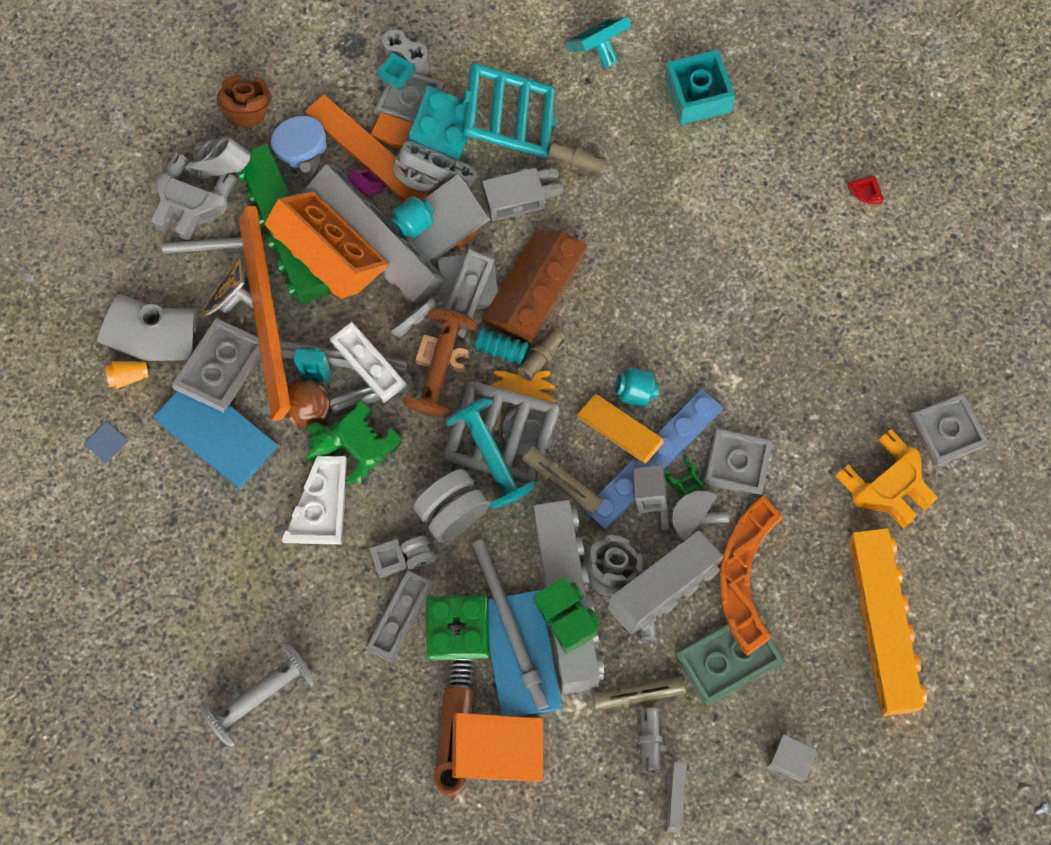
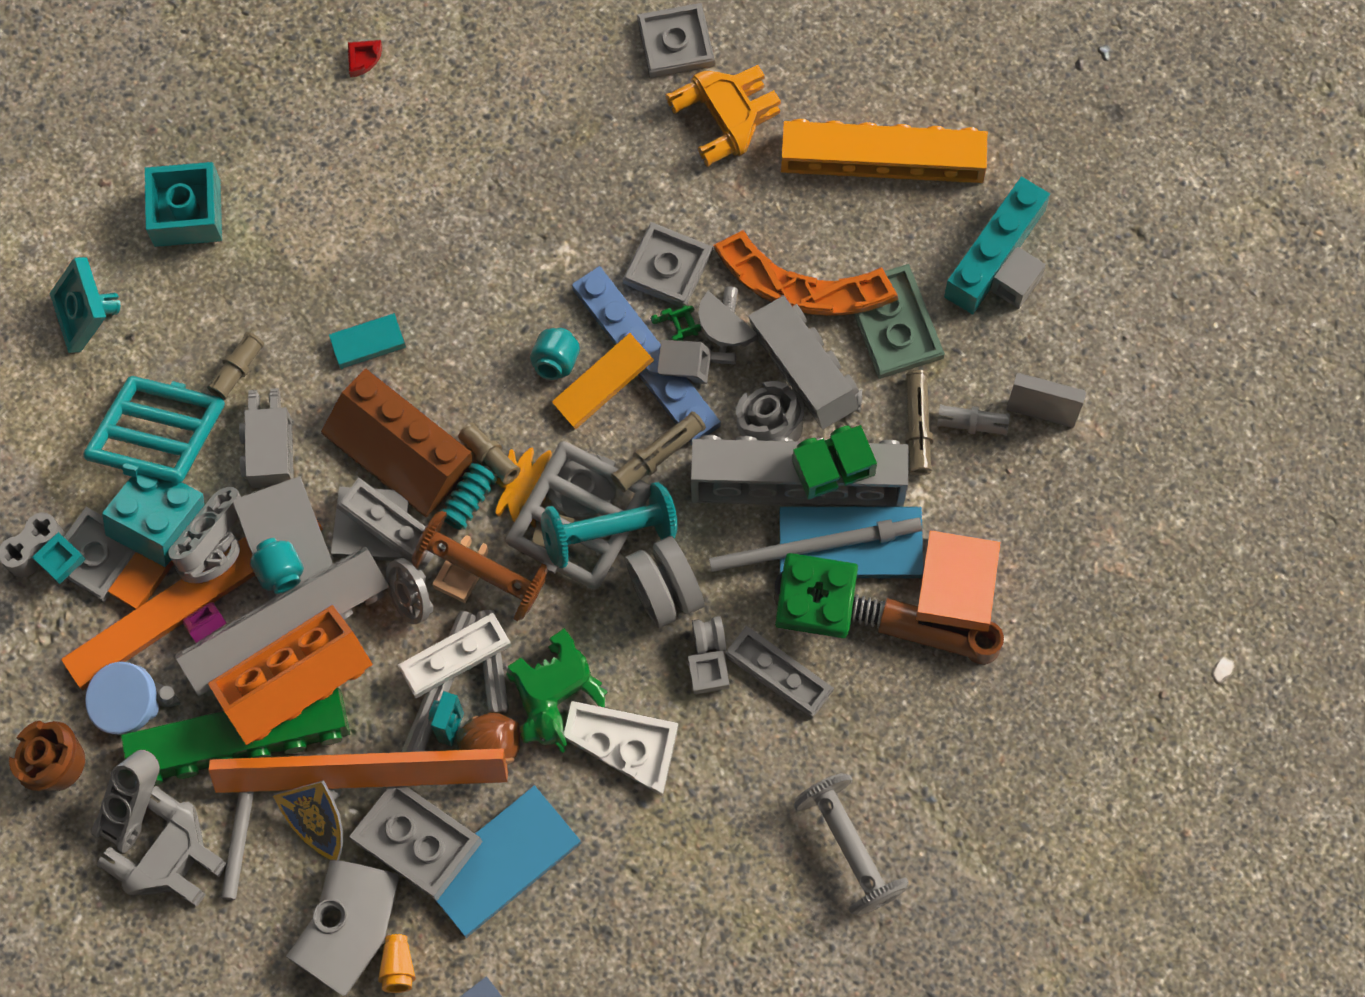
camera: 80 degrees left, 0 degrees up
(619, 247) = (367, 341): none -> teal tile
(827, 736) = (995, 244): none -> teal brick

